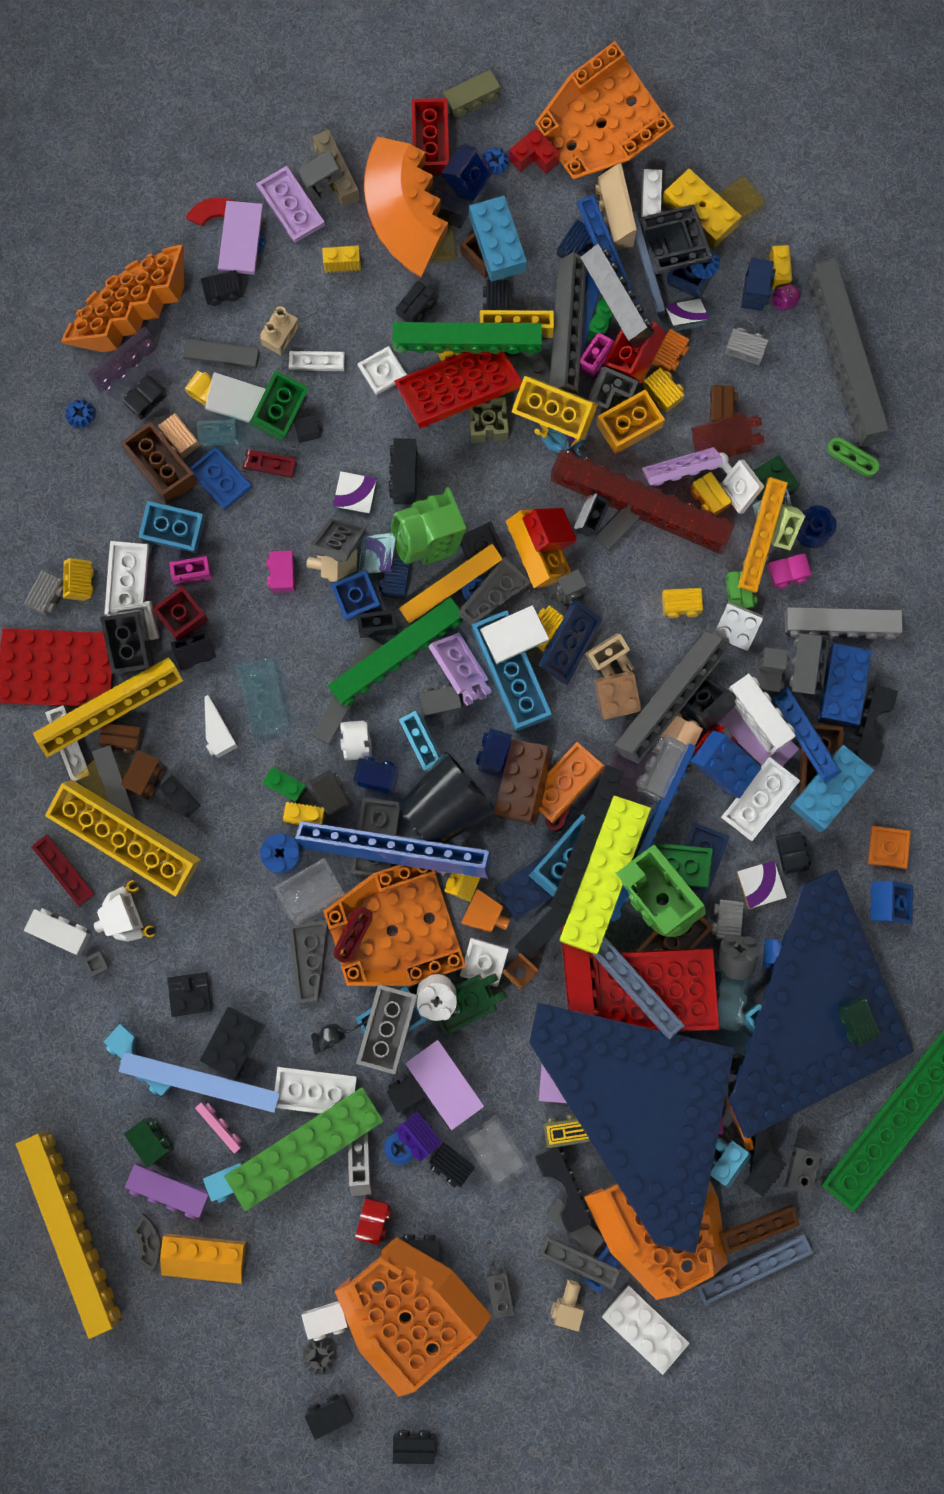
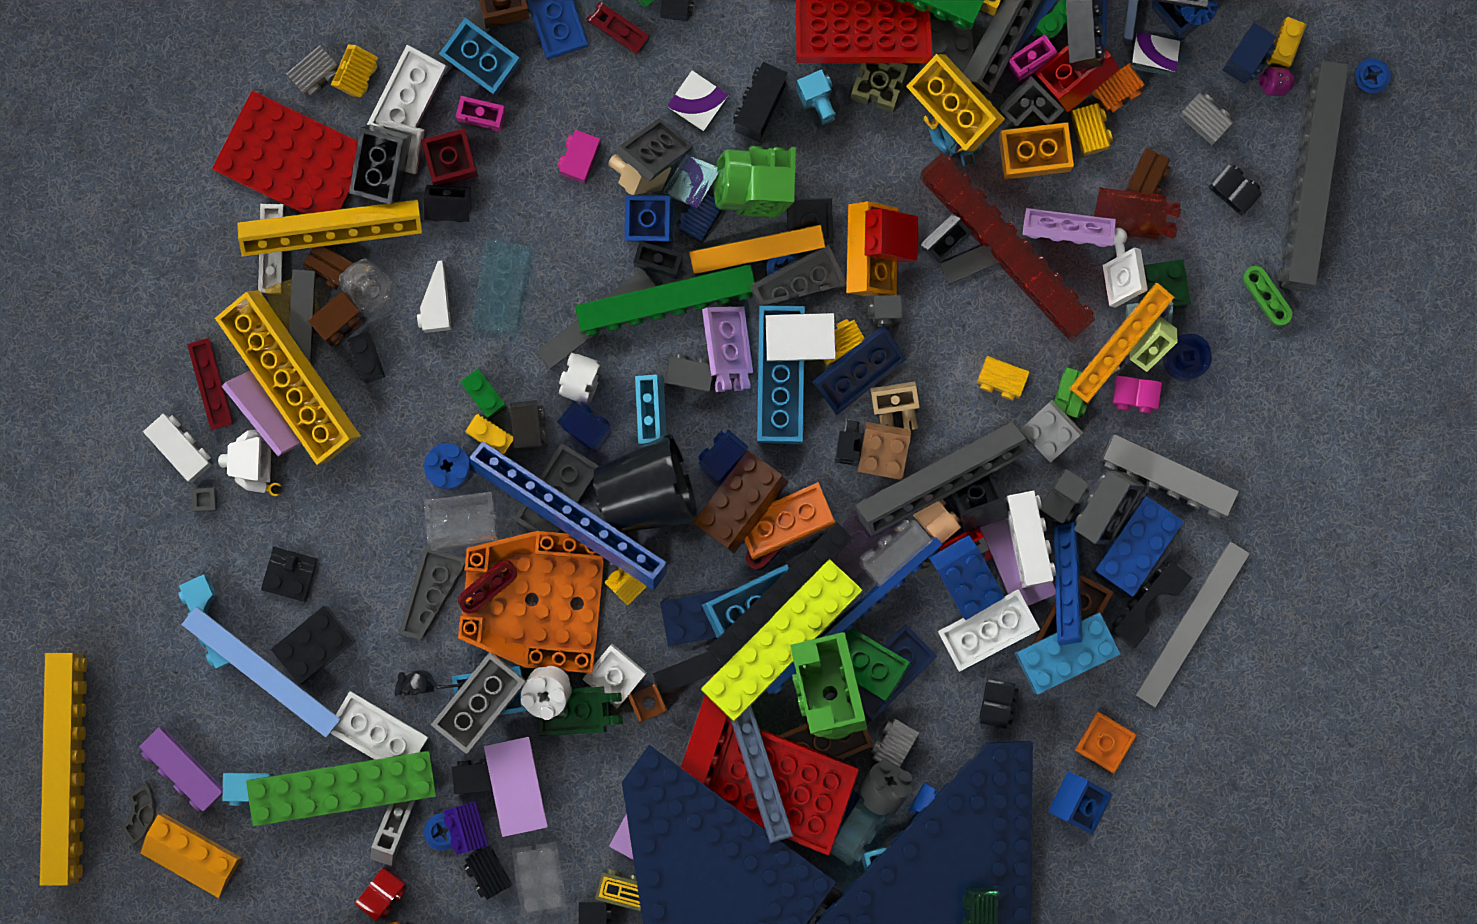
camera: 25 degrees right, 5 degrees up
(114, 874) = (261, 412): none -> lavender tile
(149, 1141) = (184, 710): dark green brick -> none
(156, 739) = (366, 285): none -> clear brick
(219, 1126) = (263, 727): bright pink plate -> none
(442, 448) = (815, 93): none -> medium azure brick
(484, 913) = (637, 625): orange torso -> none
(585, 702) = (846, 443): none -> black hips
(710, 494) = (1088, 271): yellow brick -> none
(761, 884) = (948, 722): tile -> none
(792, 388) = (1235, 189): none -> black brick
(854, 257) = (1375, 66): none -> blue gear
(912, 728) = (1192, 624): none -> light grey tile

